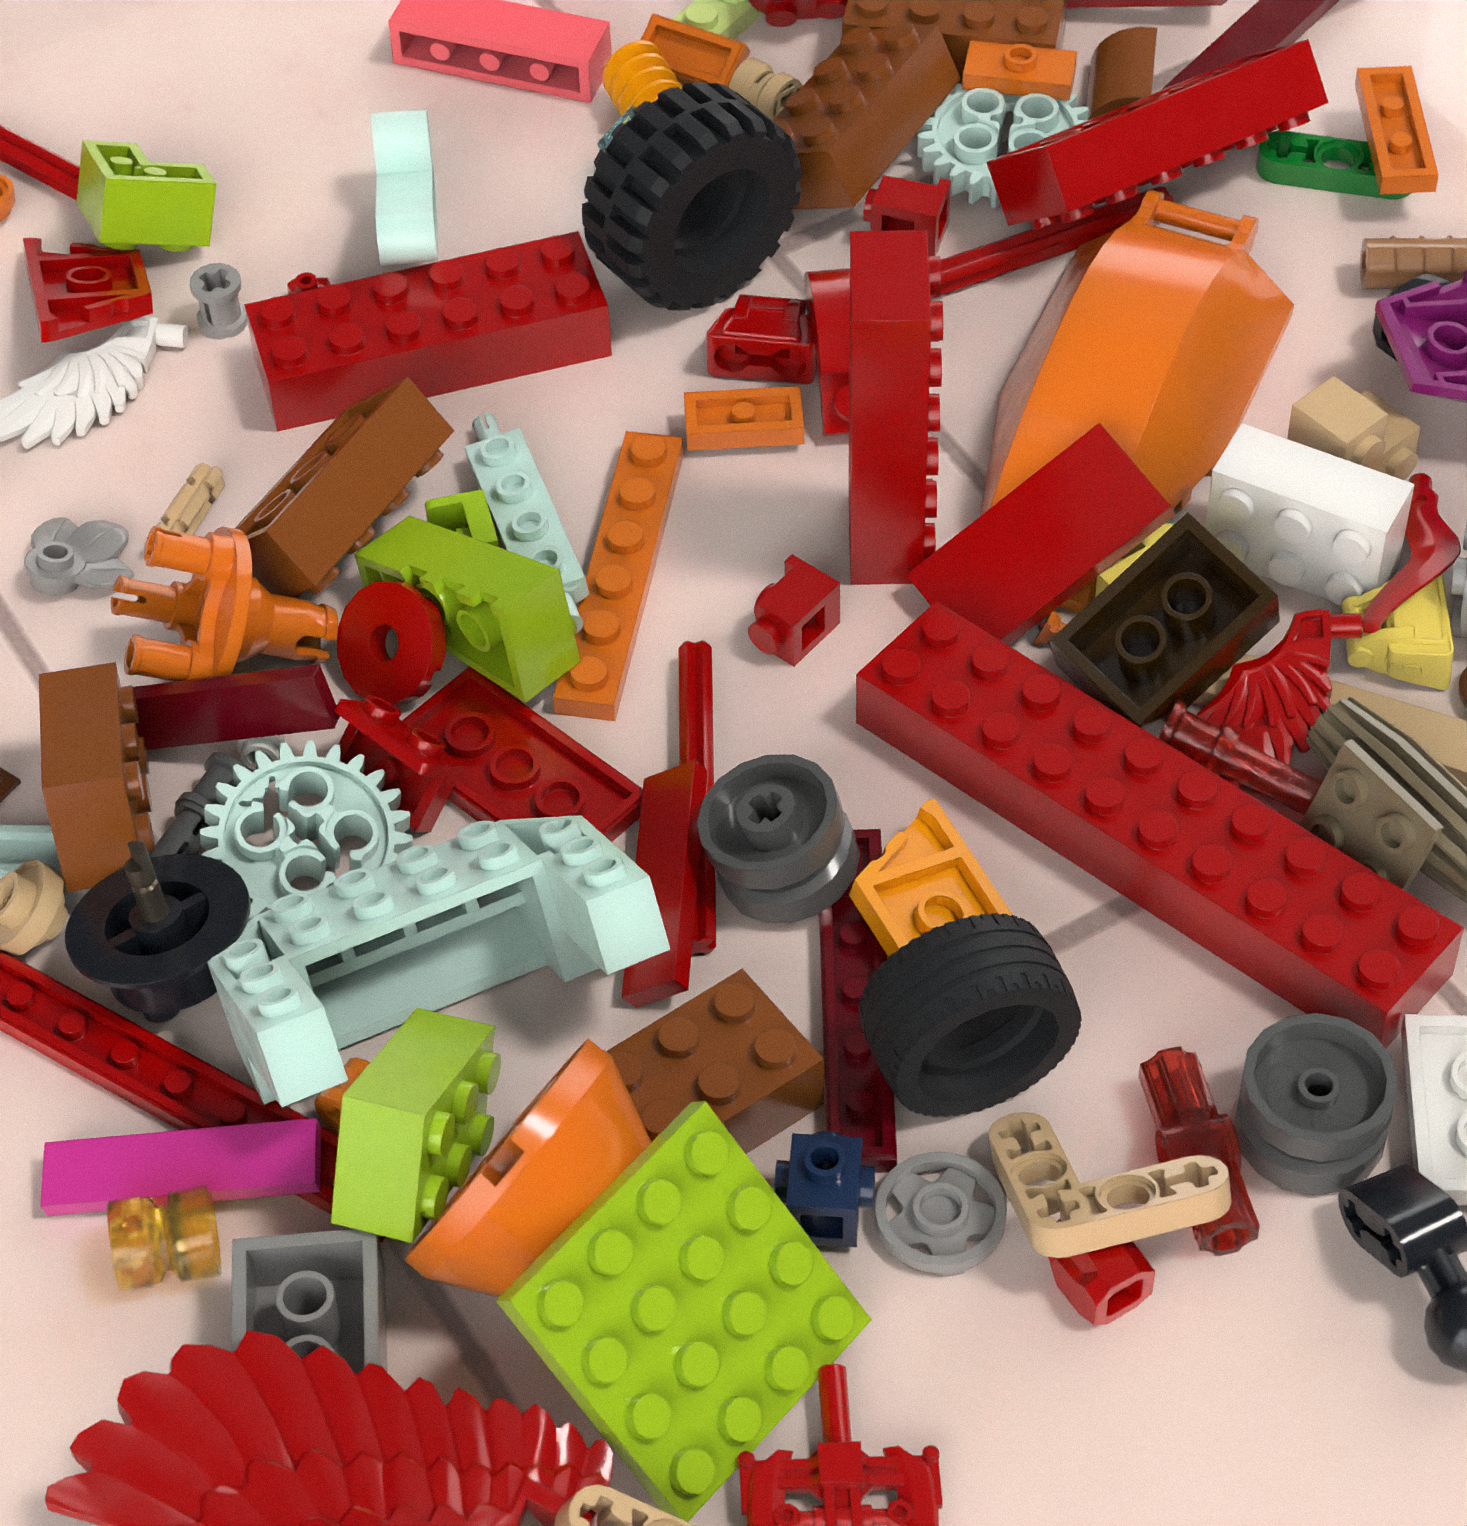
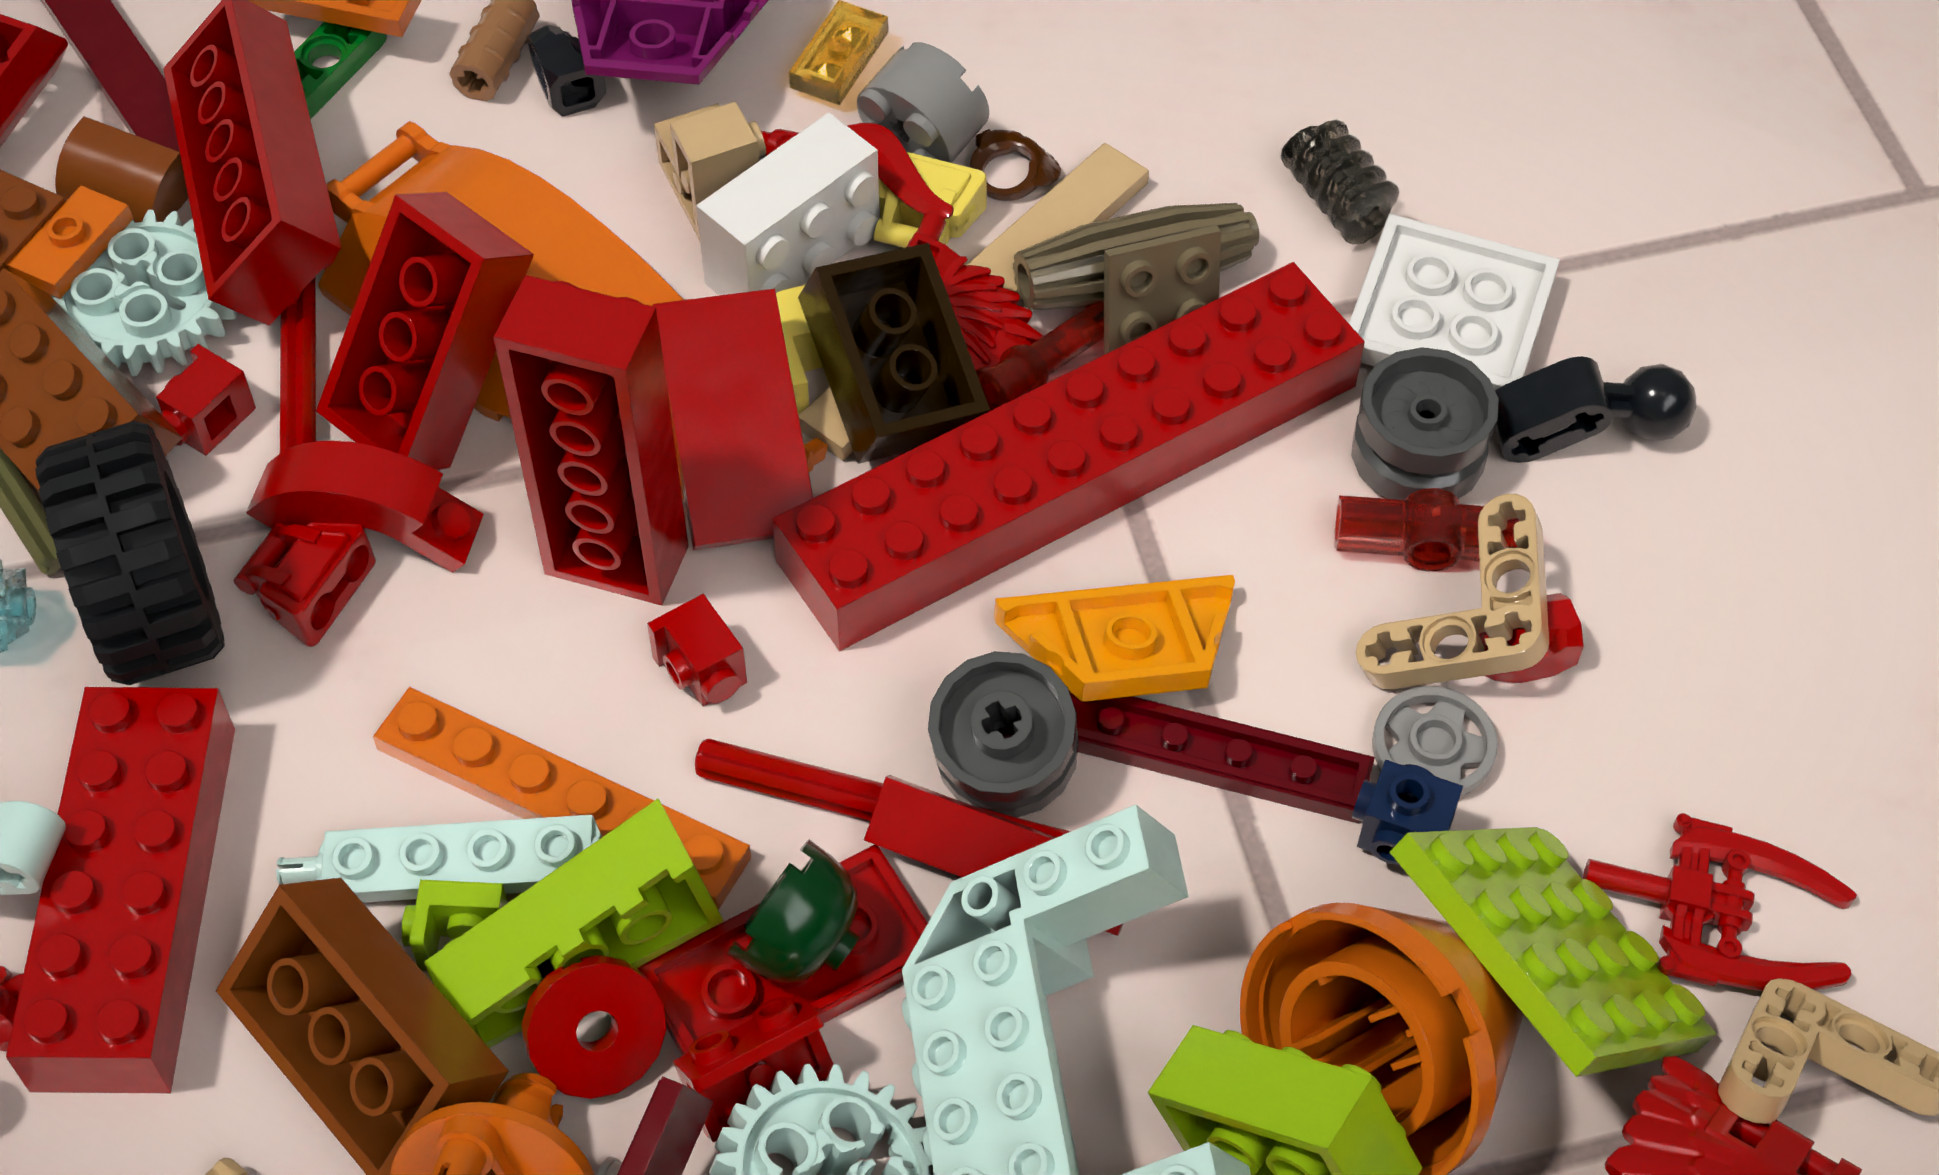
camera: 75 degrees left, 5 degrees up
(525, 737) = (801, 921): none -> dark green cylinder
(726, 1051) = (1249, 866): dark orange brick -> none
(744, 418) = (409, 626): orange plate -> none
(969, 1015) = (1291, 631): black tyre -> none
(1019, 281) = (423, 328): none -> red brick

